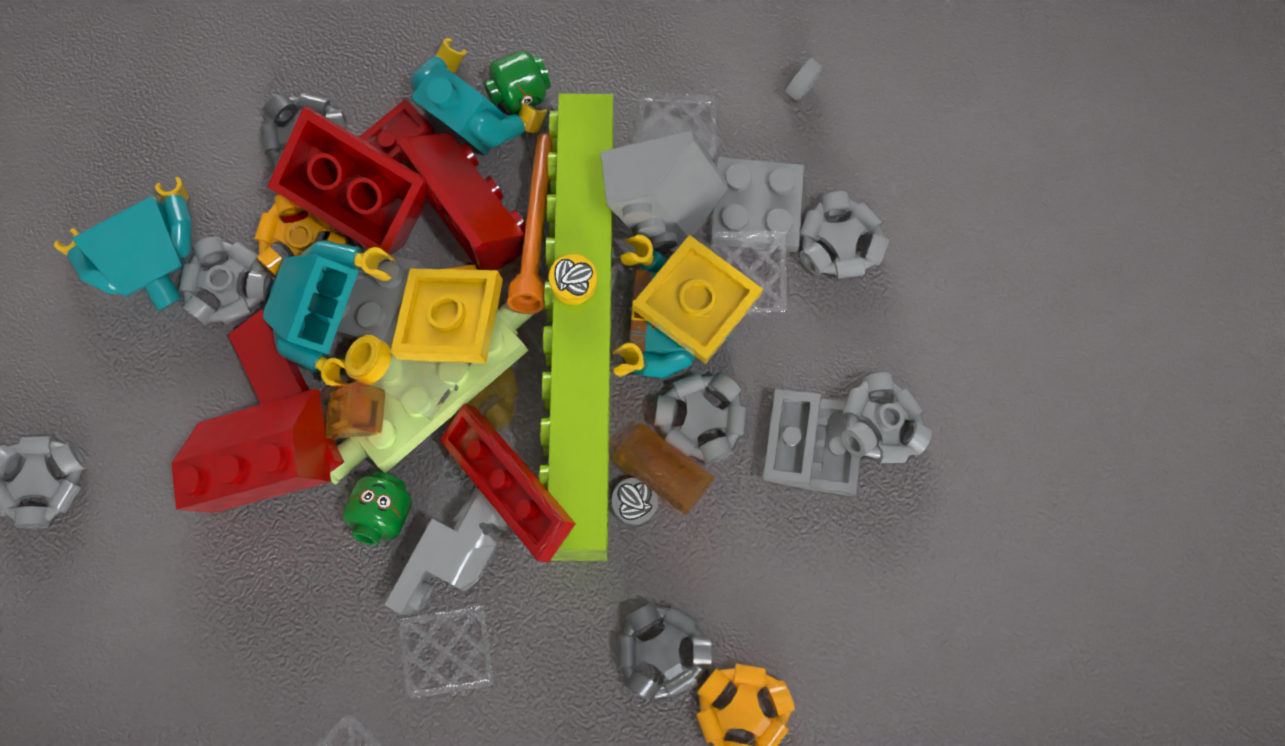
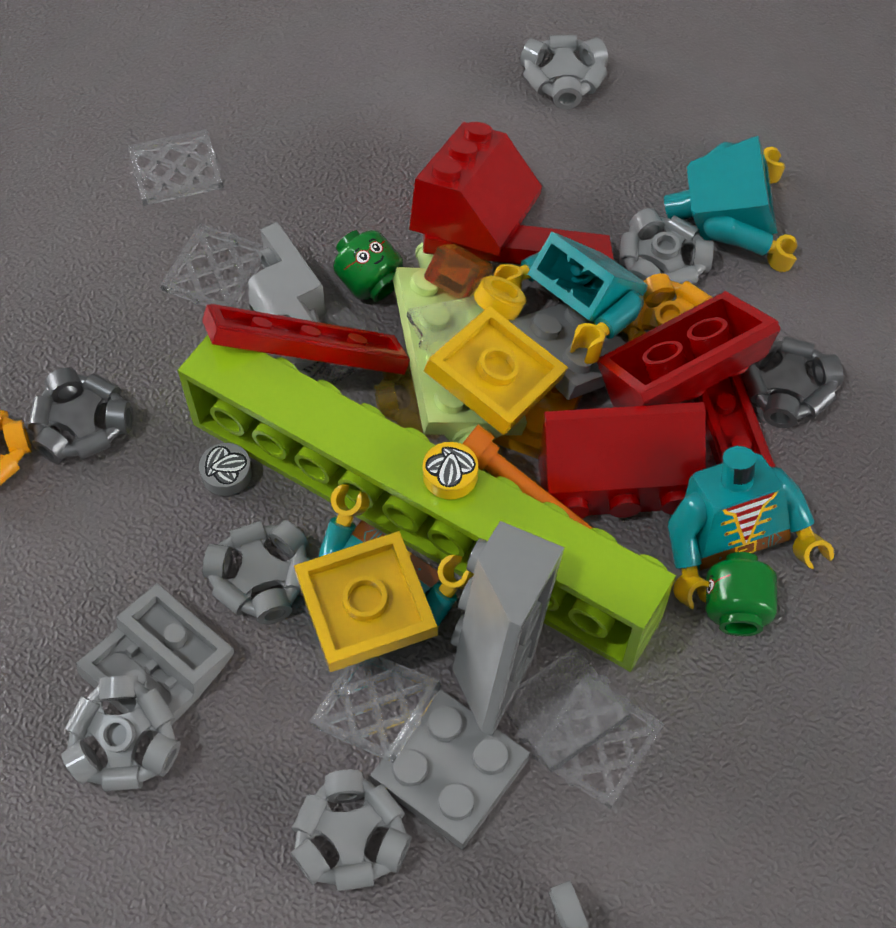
camera: 125 degrees right, 15 degrees down
(663, 469) = (233, 503): clear orange plate -> none

